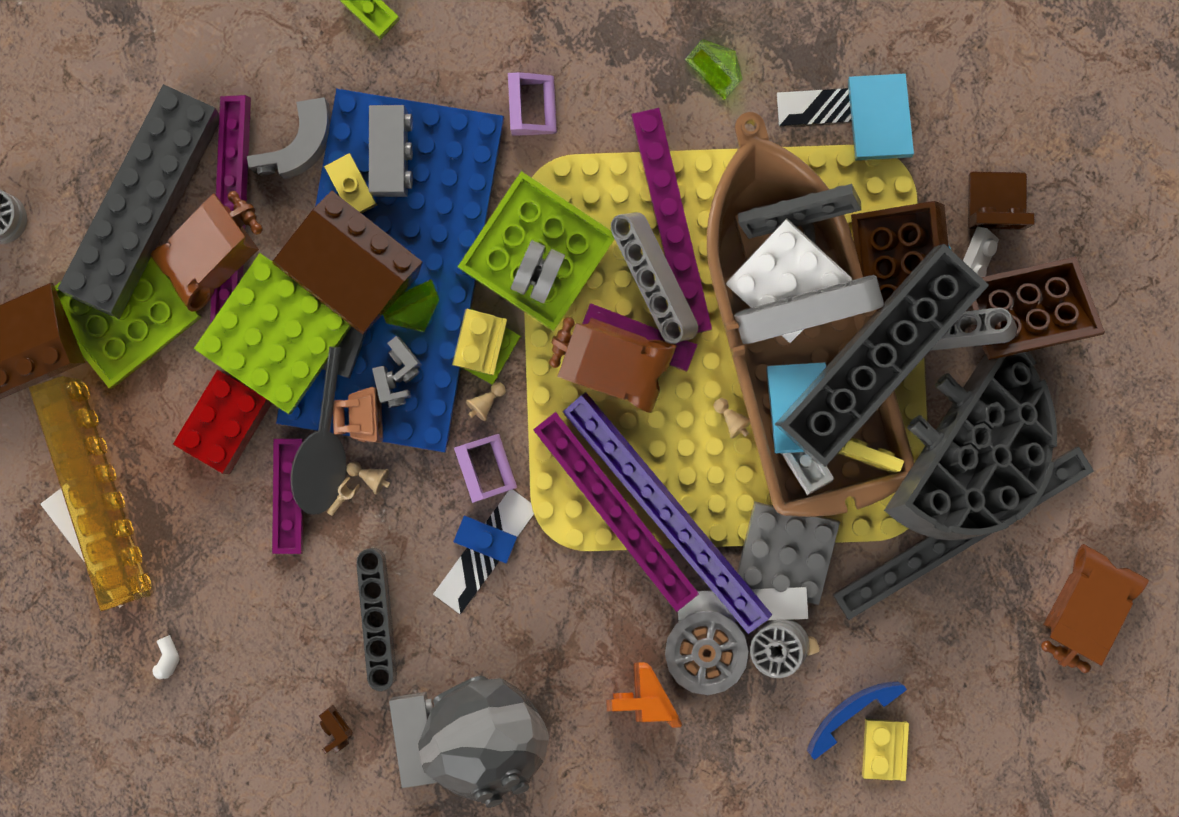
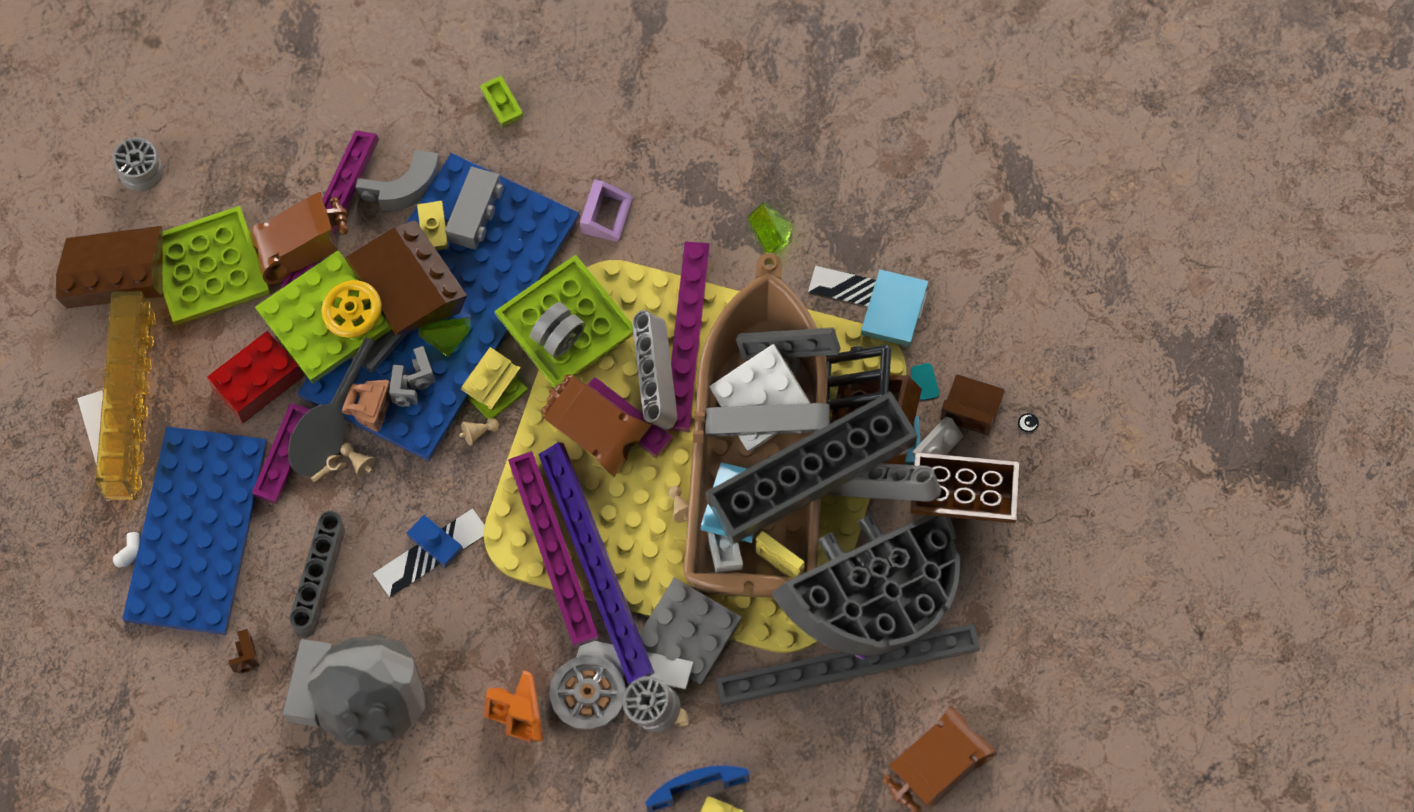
camera: 25 degrees right, 20 degrees down
(140, 202) = (258, 187): dark grey brick -> none
(227, 610) = (195, 531): none -> blue plate
(326, 324) = (341, 291): none -> yellow plate
(469, 472) = (442, 501): lavender tile -> none
(912, 234) = (881, 374): none -> black bar
(935, 187) = (925, 378): none -> teal sticker
(1059, 200) = (1028, 422): none -> black sticker

